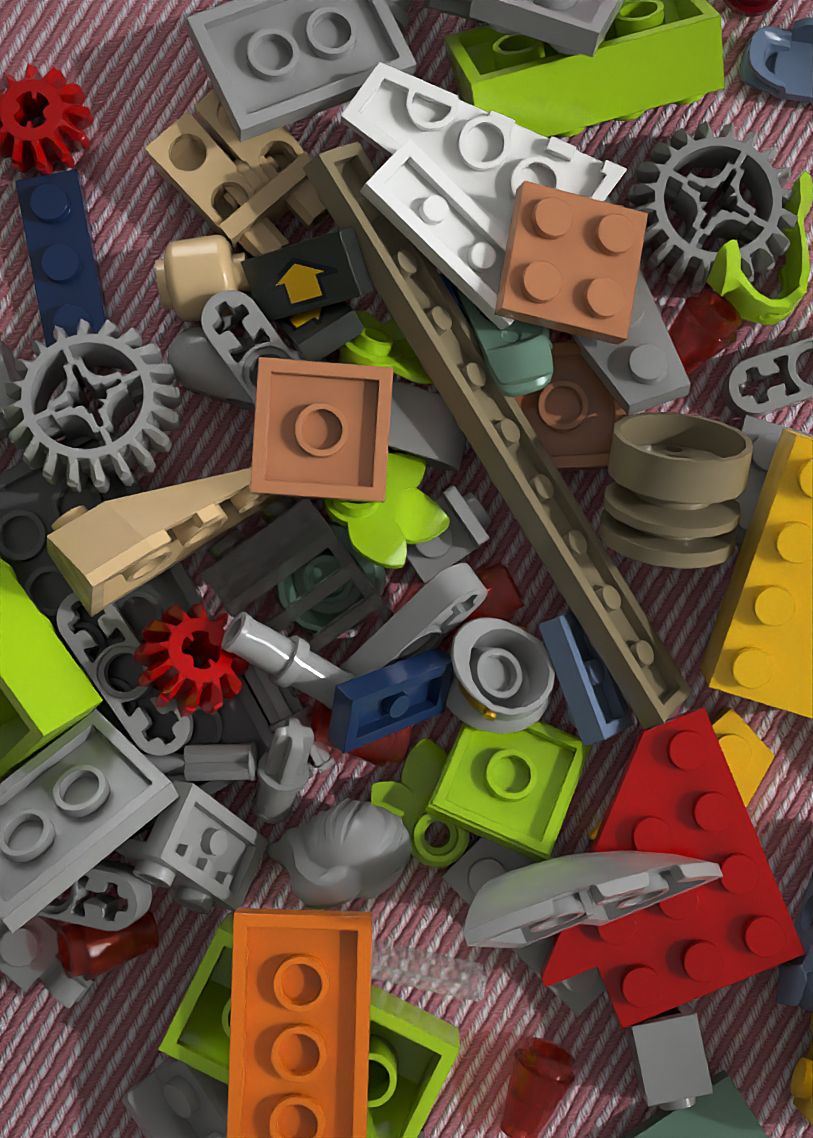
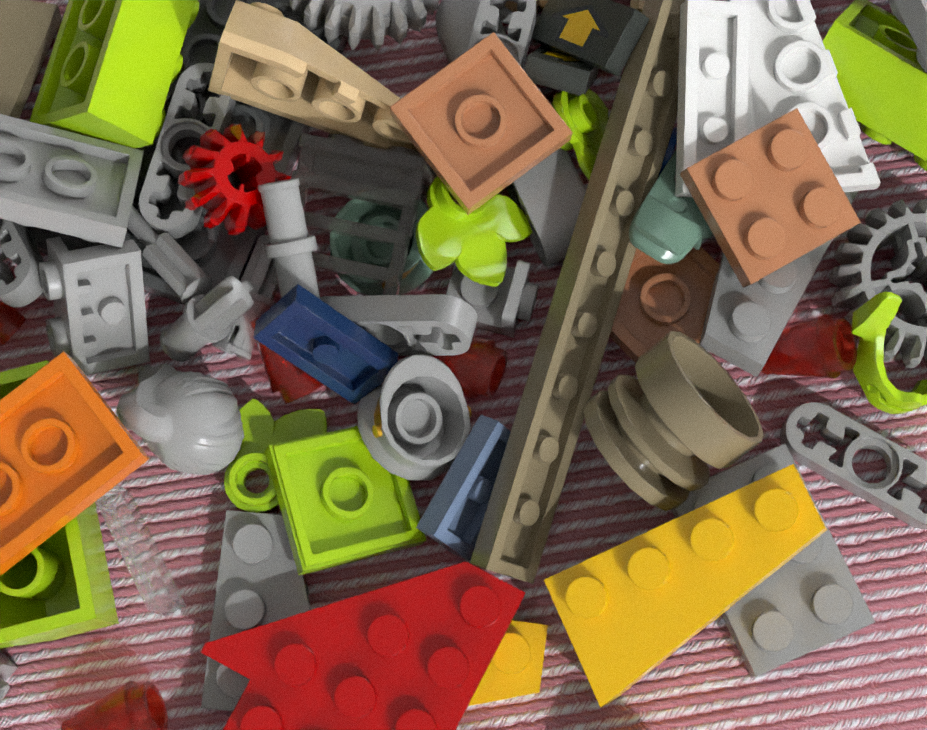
camera: 55 degrees right, 10 degrees down
(577, 890) = (296, 599): light grey brick -> none

